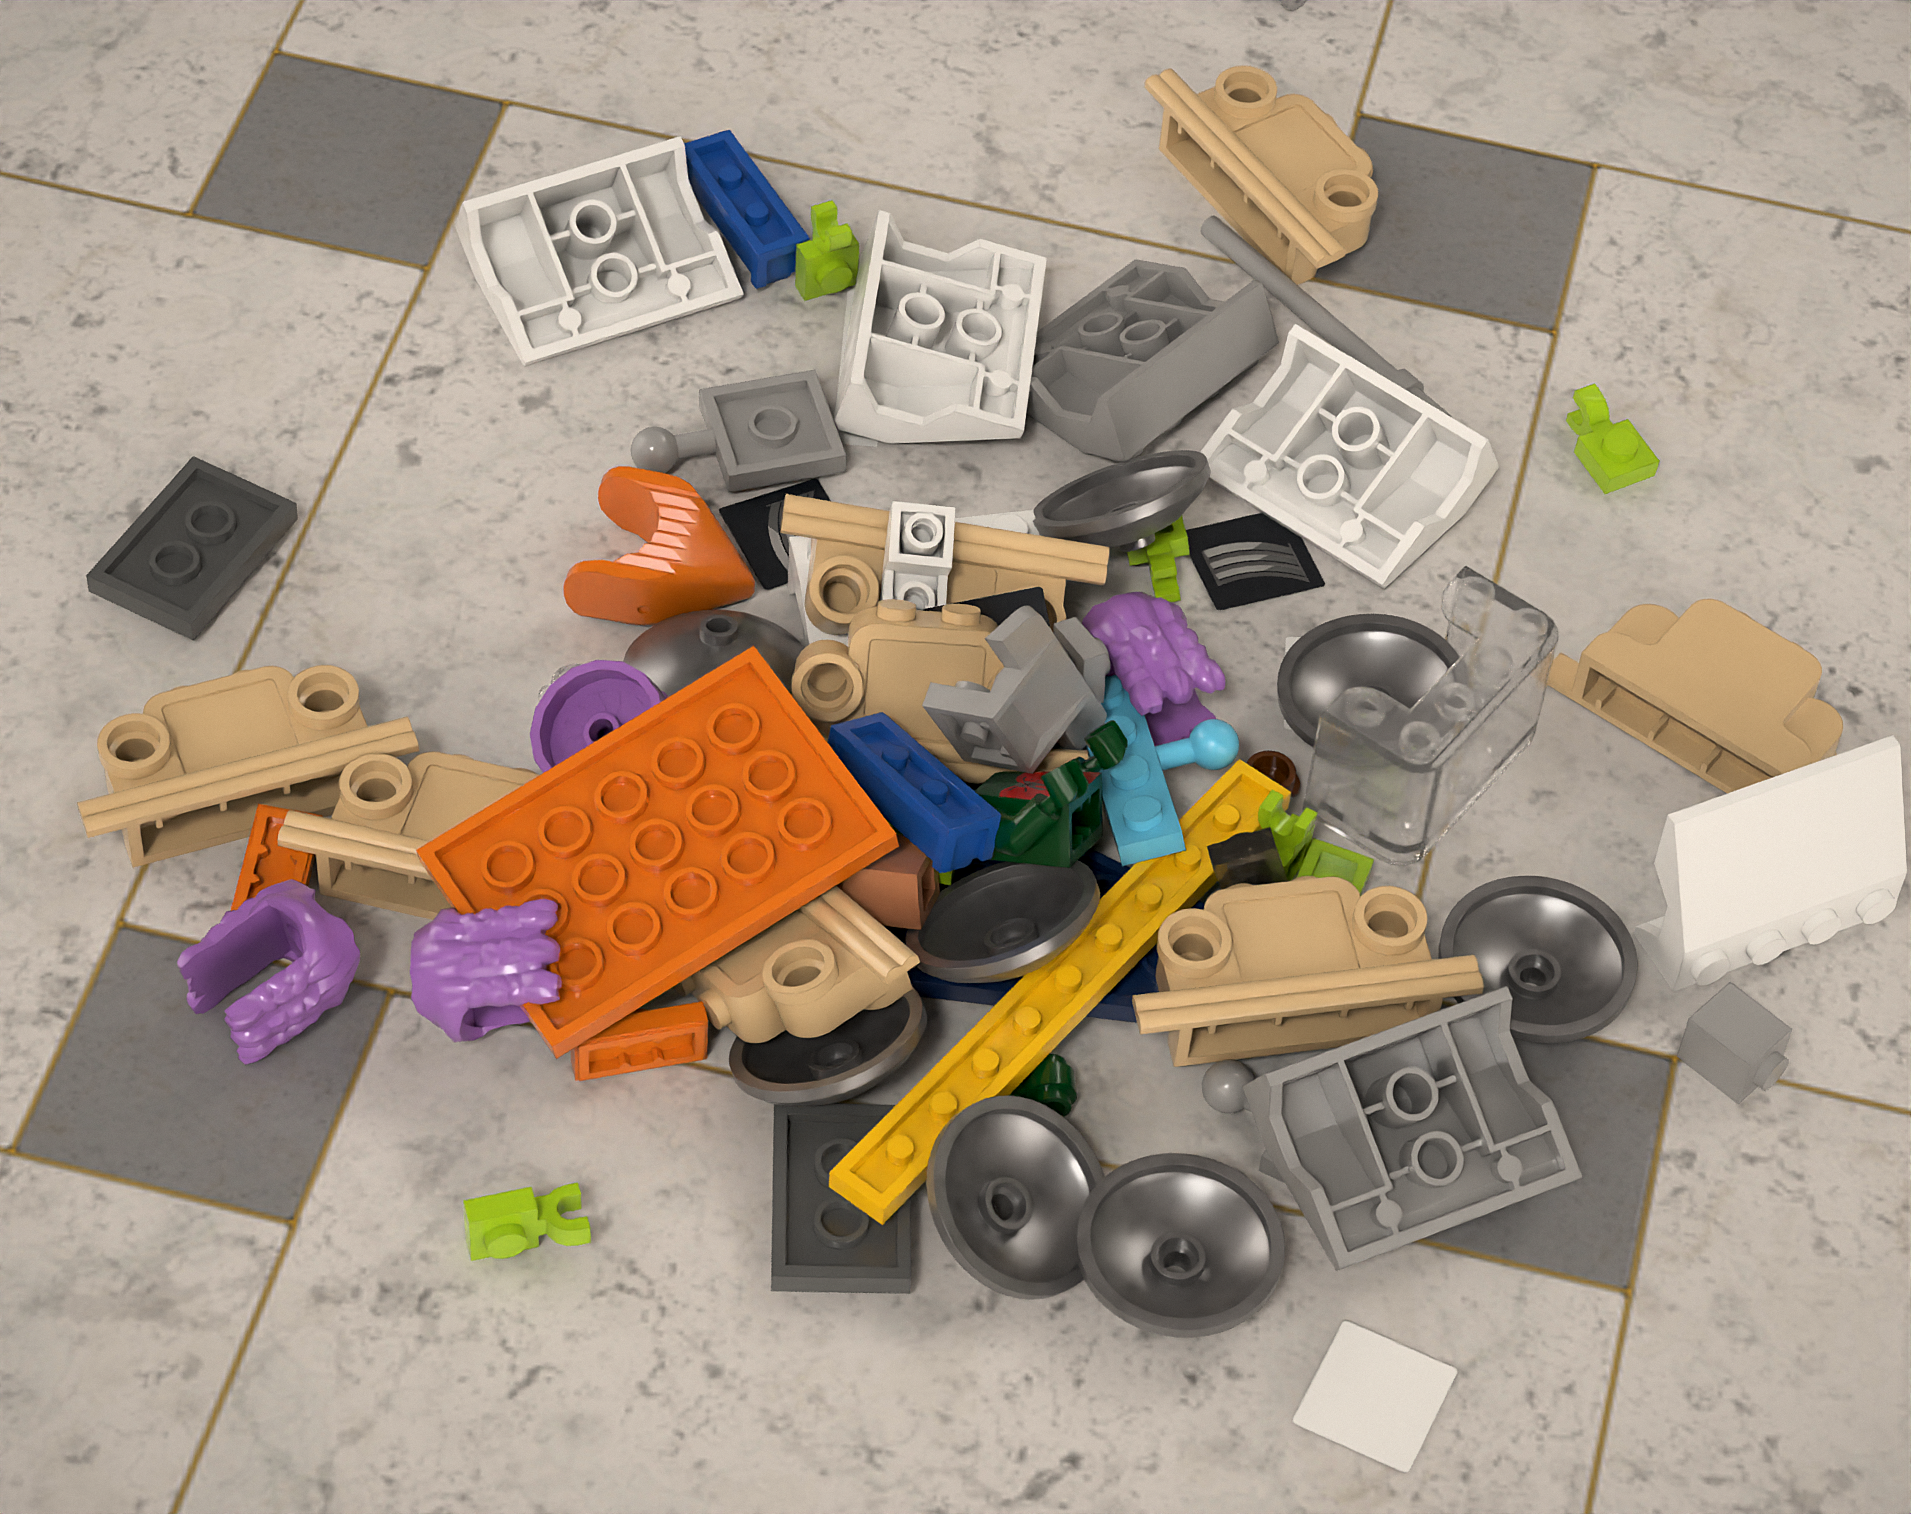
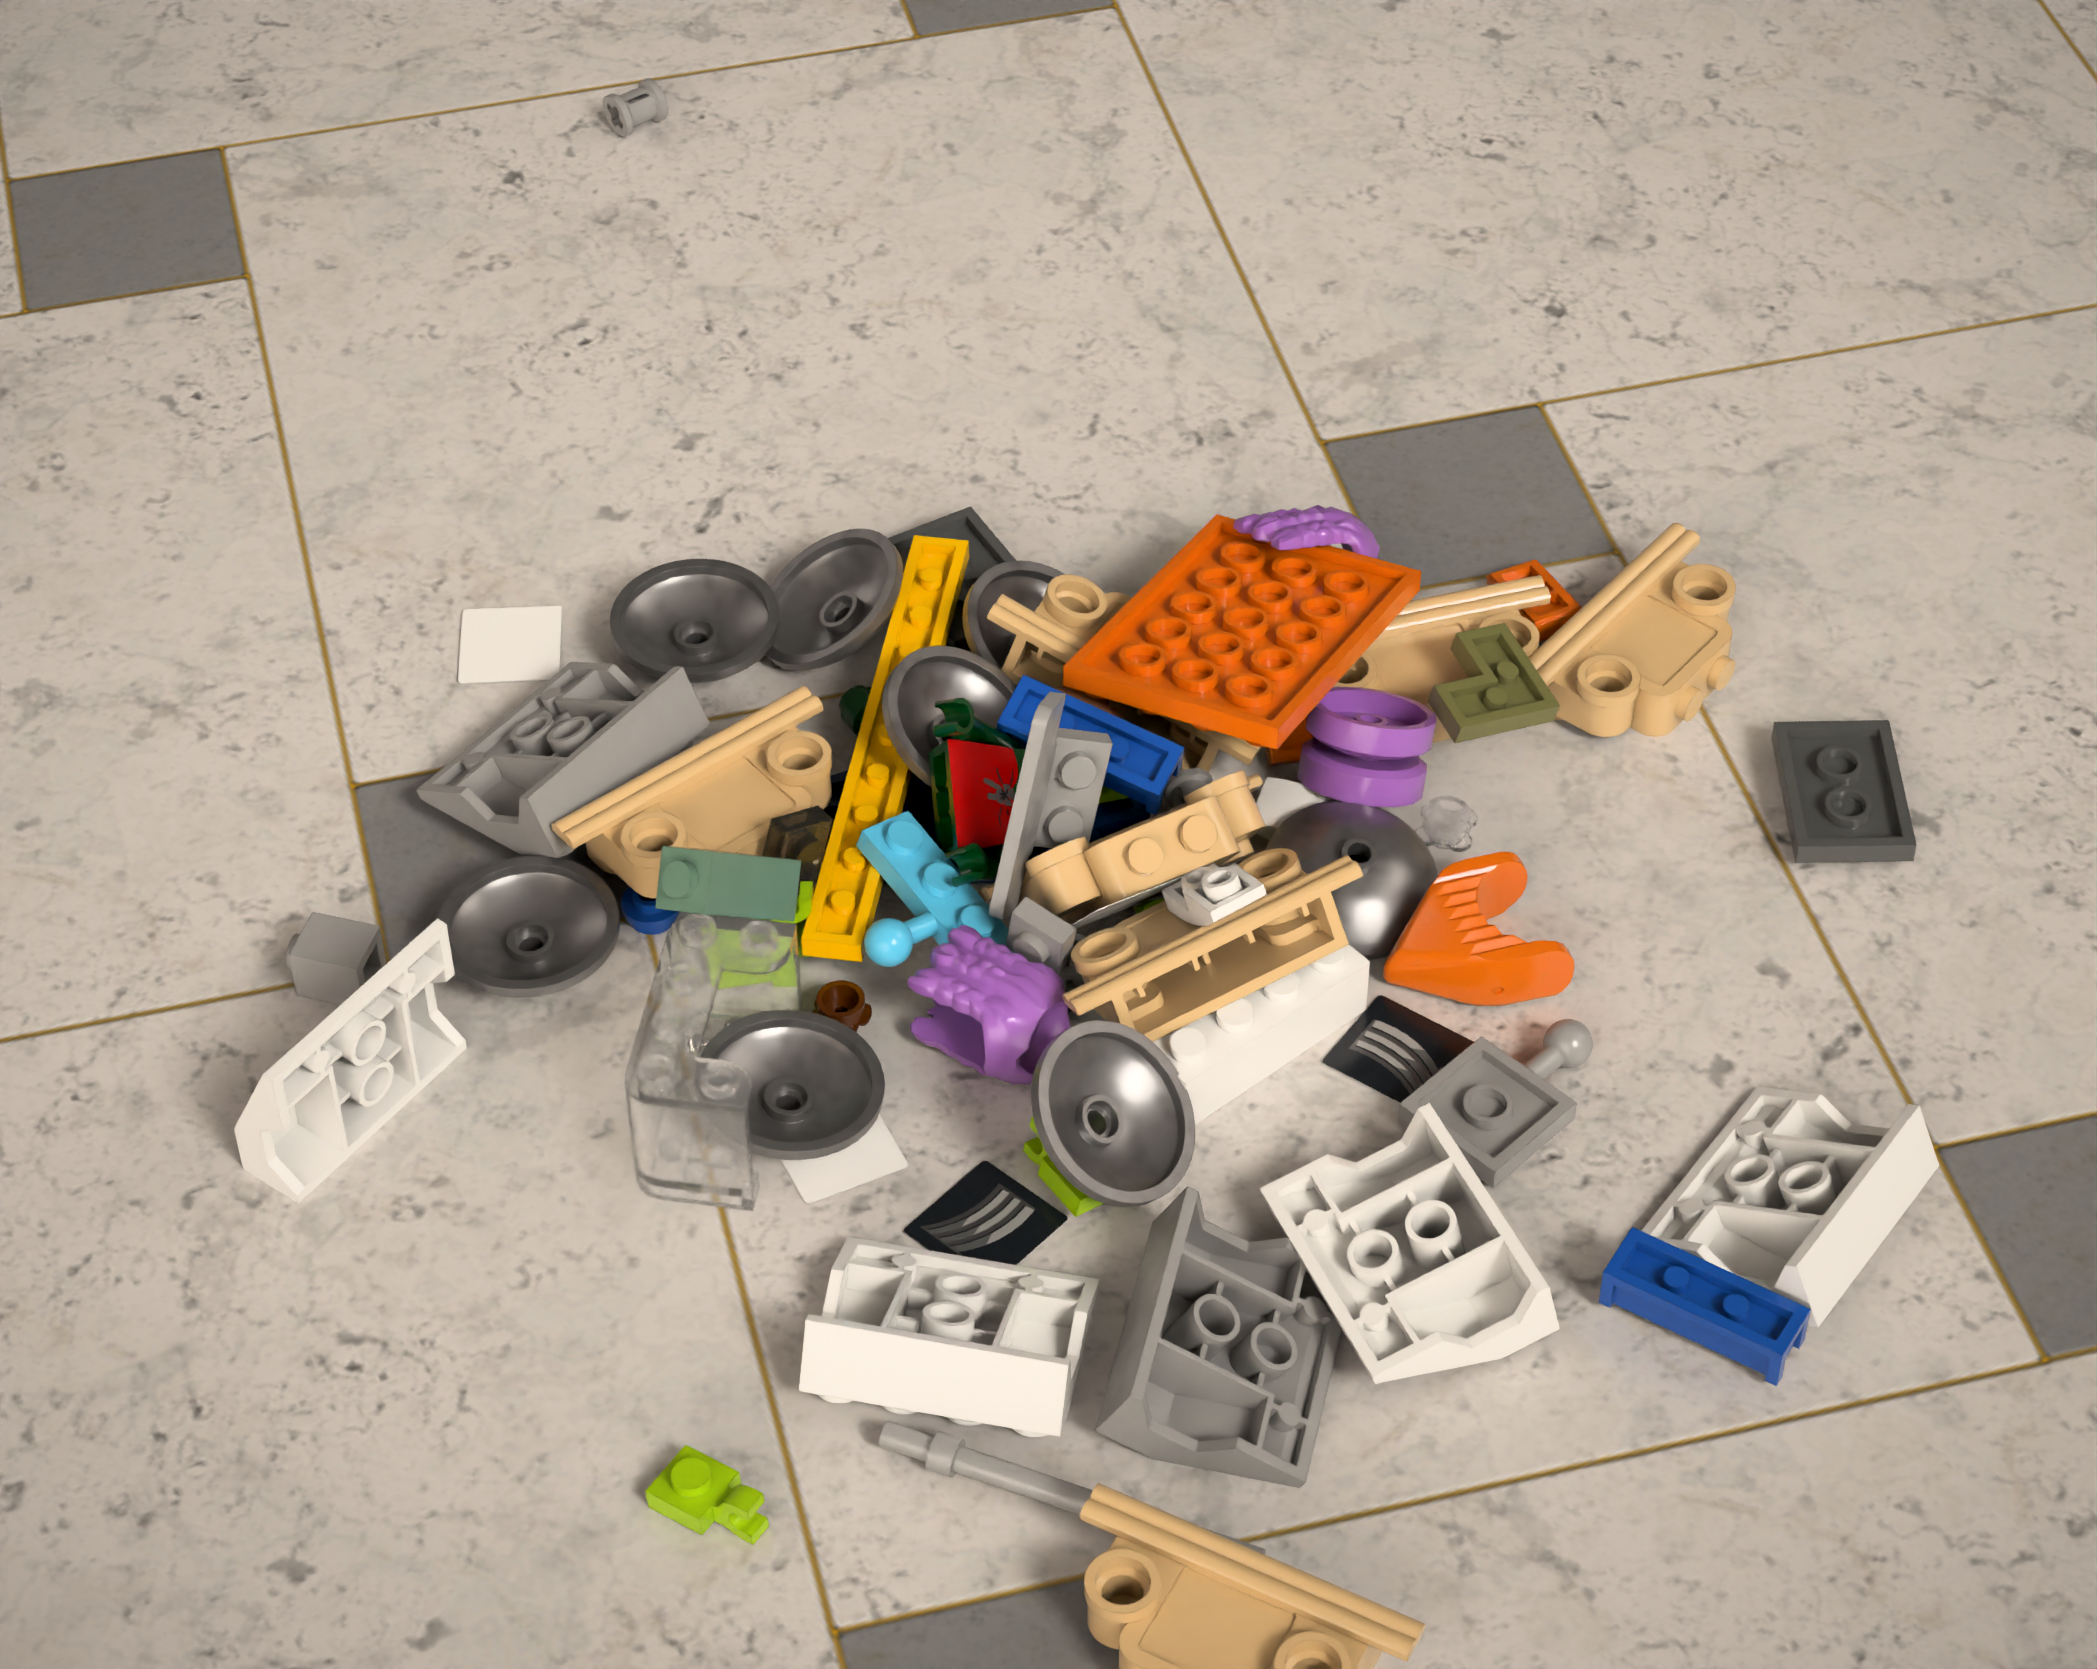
camera: 155 degrees right, 5 degrees down
(272, 926) = (1489, 516): medium lavender piece -> none
(451, 695) = (1501, 687): none -> olive plate
(513, 1220) = (1171, 473): lime plate -> none
(830, 258) = (1577, 1280): lime plate -> none
(1373, 779) = (727, 884): none -> sand green slope
(1706, 692) = (480, 1237): tan brick -> none

